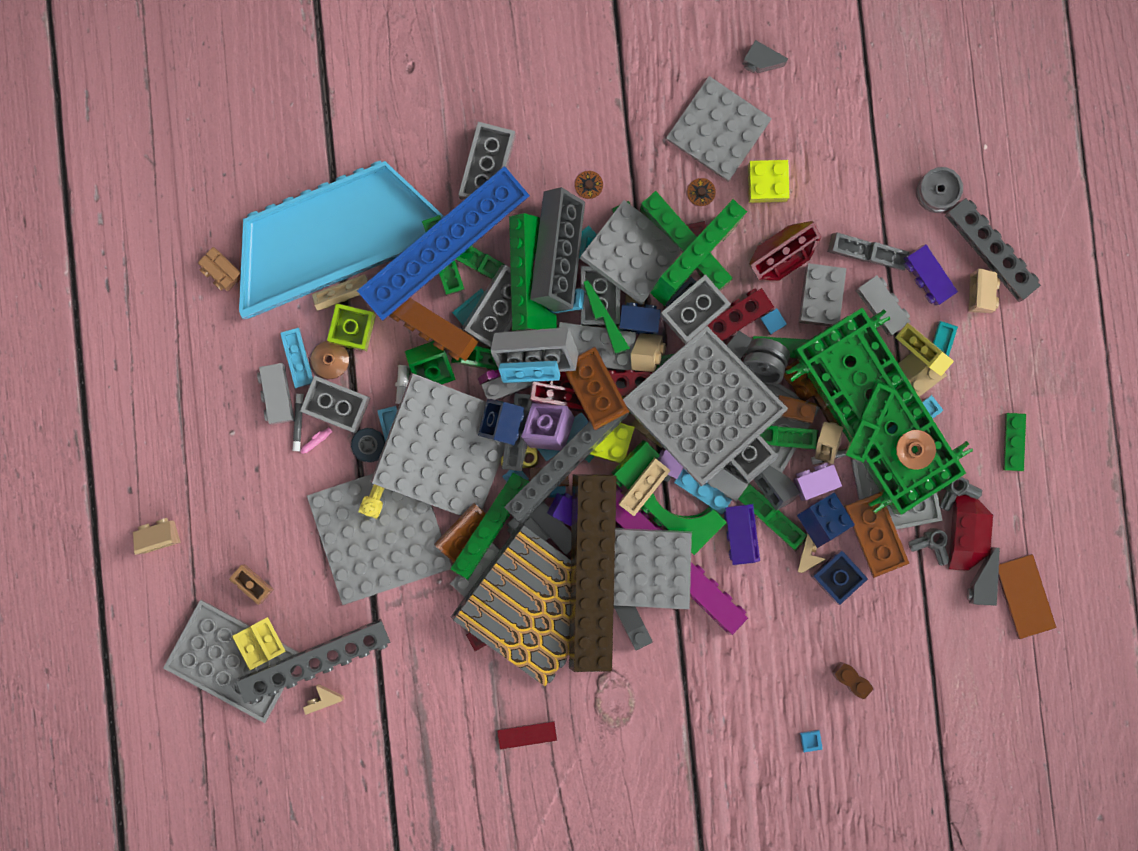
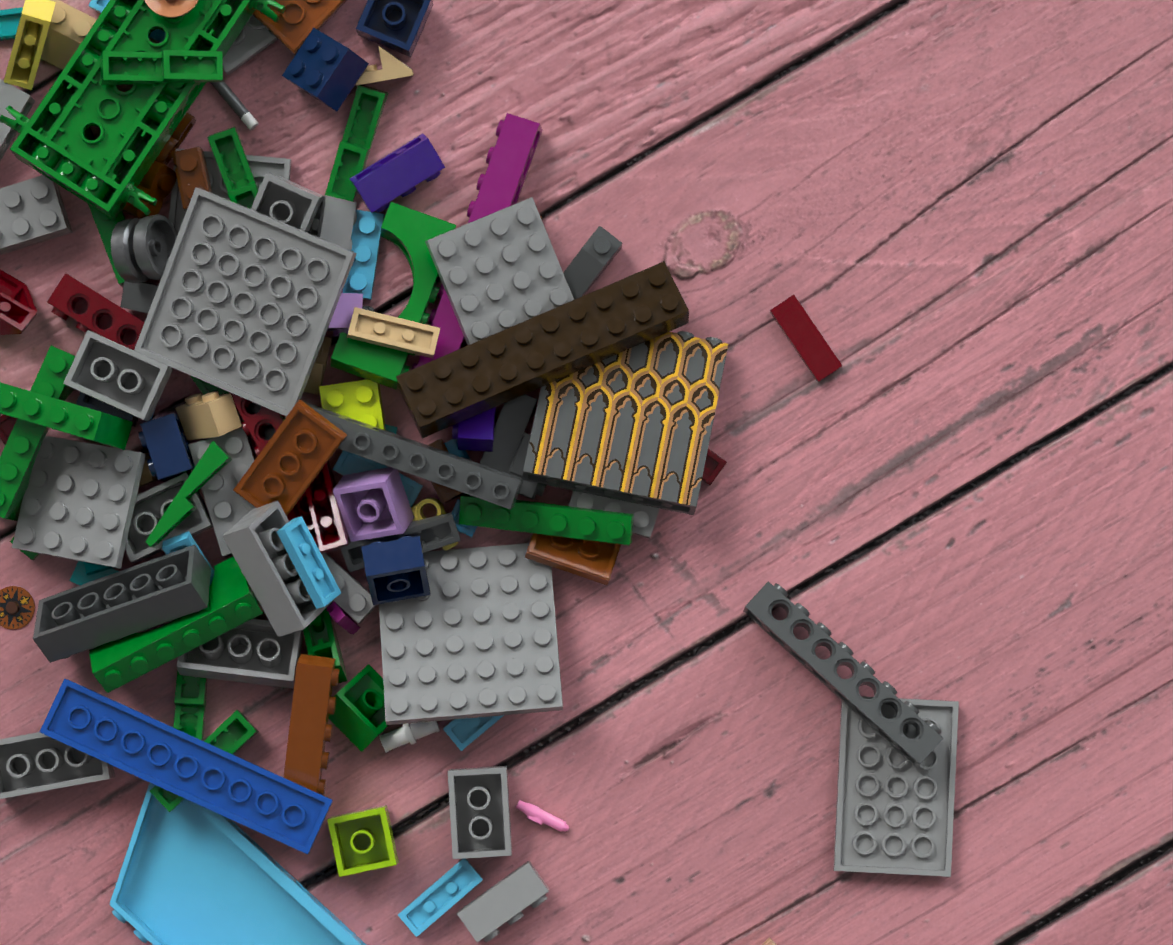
camera: 120 degrees left, 0 degrees up
(251, 584) = (779, 809): medium nougat brick -> none
(258, 643) = (855, 760): light yellow slope -> none
(297, 422) = (529, 853): dark grey bar -> none
(327, 698) = (885, 630): tan slope -> none
(338, 293) = (322, 881): tan plate -> none
(339, 361) = (438, 851): nougat dish -> none
(362, 445) = (507, 745): black wheel -> none
(371, 504) = (593, 695): light yellow axle -> none
(380, 552) = (636, 670): light grey plate -> none
(465, 309) = (267, 696): teal tile -> none
(773, 321) = (86, 266): dark azure tile -> none
(776, 487) = (312, 156): dark grey slope -> none
(817, 482) = (279, 104): lavender brick -> none
(828, 442) = (217, 113): tan brick -> none

